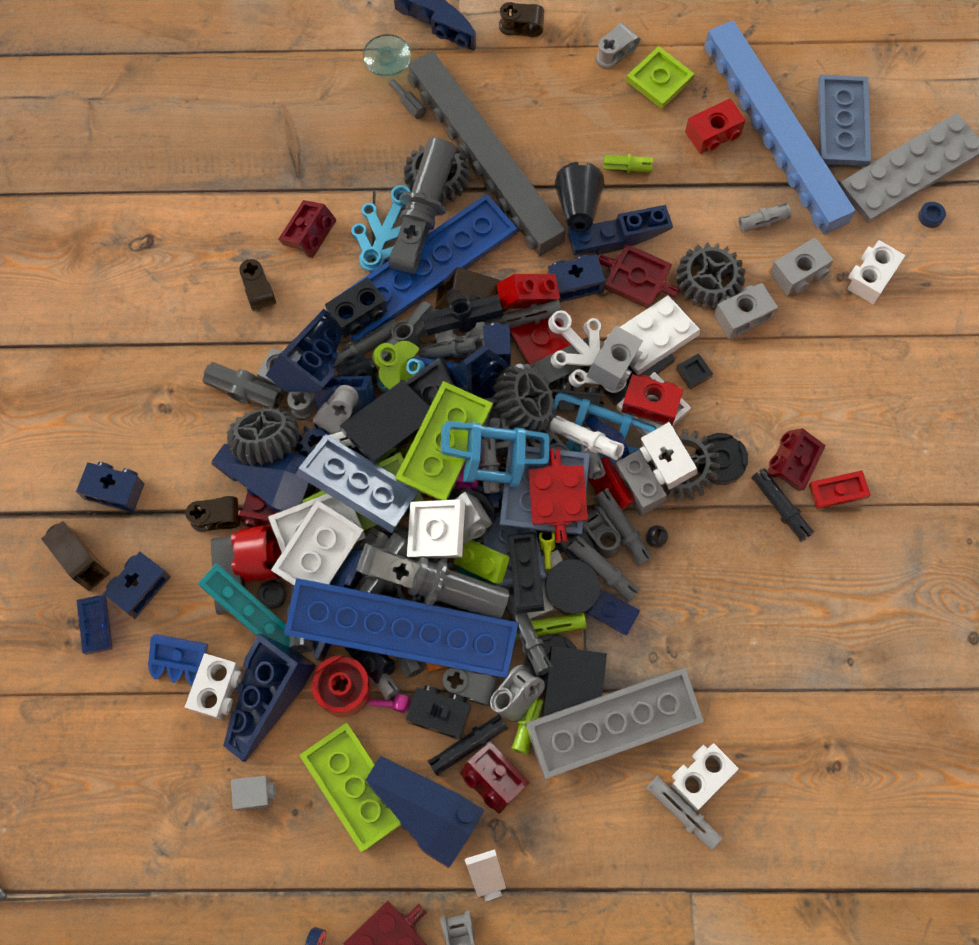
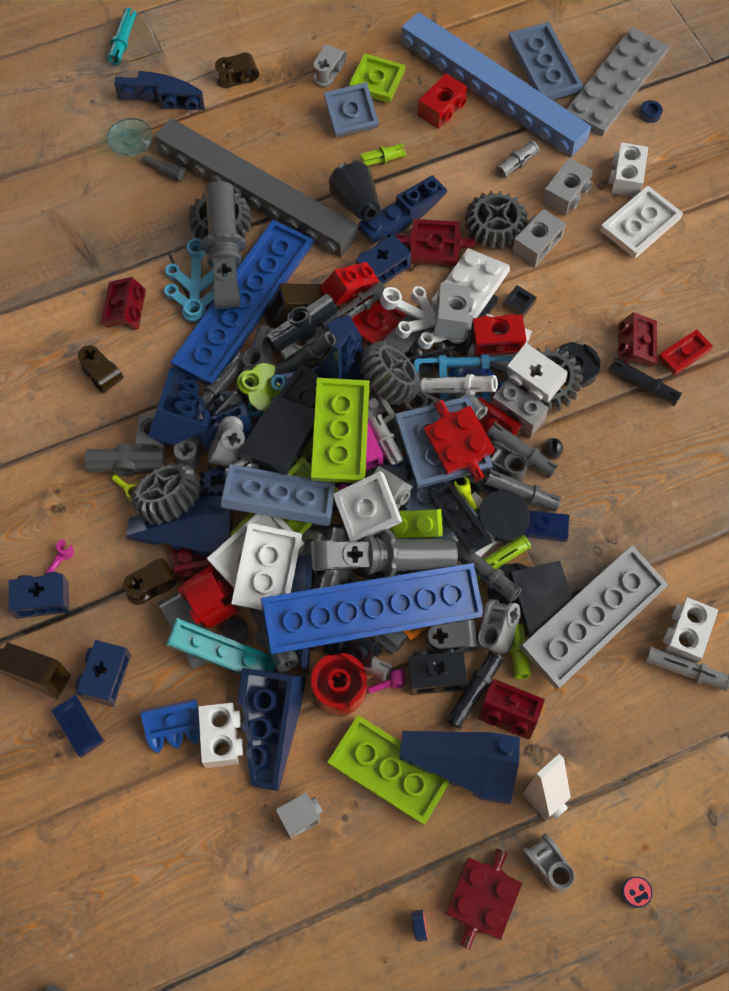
camera: 25 degrees left, 5 degrees down
(146, 456) = (62, 555): none -> dark pink hand
(233, 412) = (126, 487): none -> neon yellow hand
(352, 303) = (197, 351): black brick -> none
(472, 456) = (372, 425): dark azure bar -> none
(617, 103) = (351, 110): none -> sand blue plate
(861, 333) = (641, 221): none -> white plate

